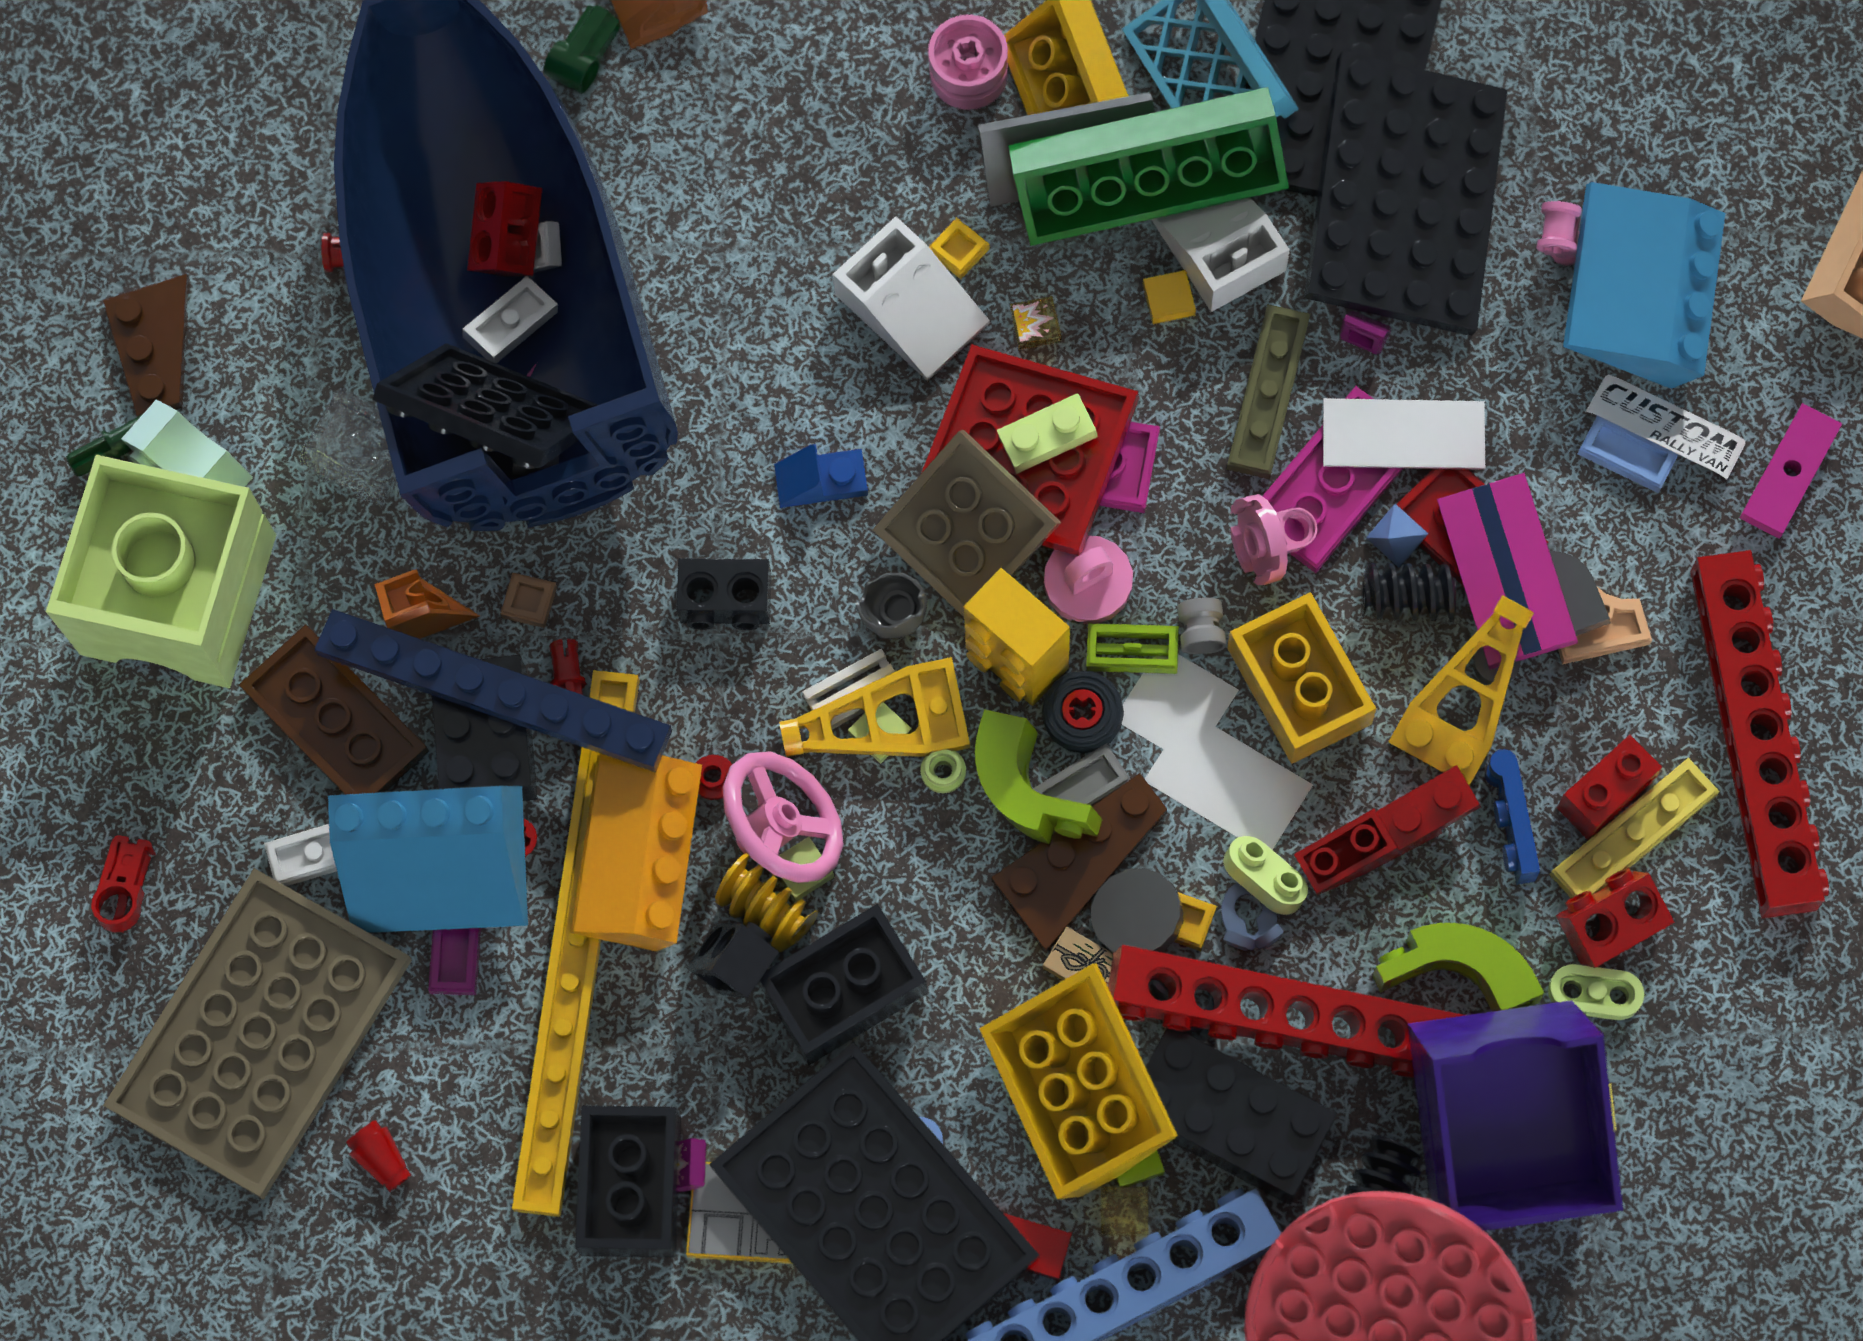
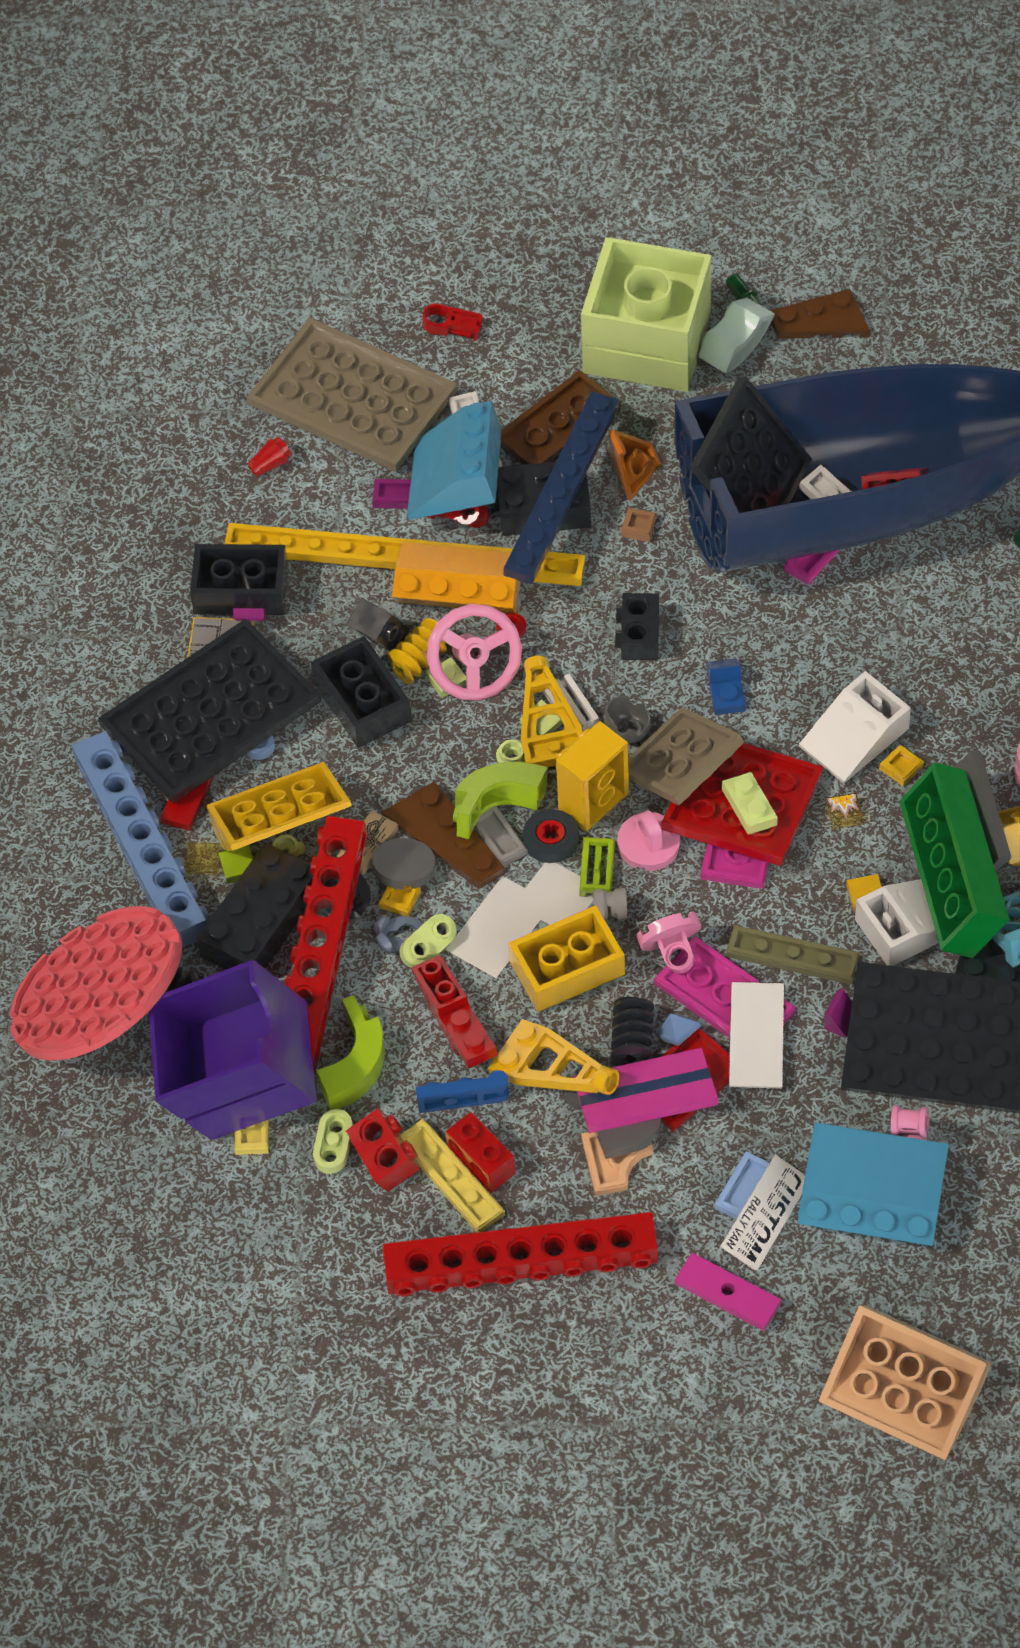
camera: 90 degrees right, 15 degrees down
(566, 669) = (580, 544): red axle -> none

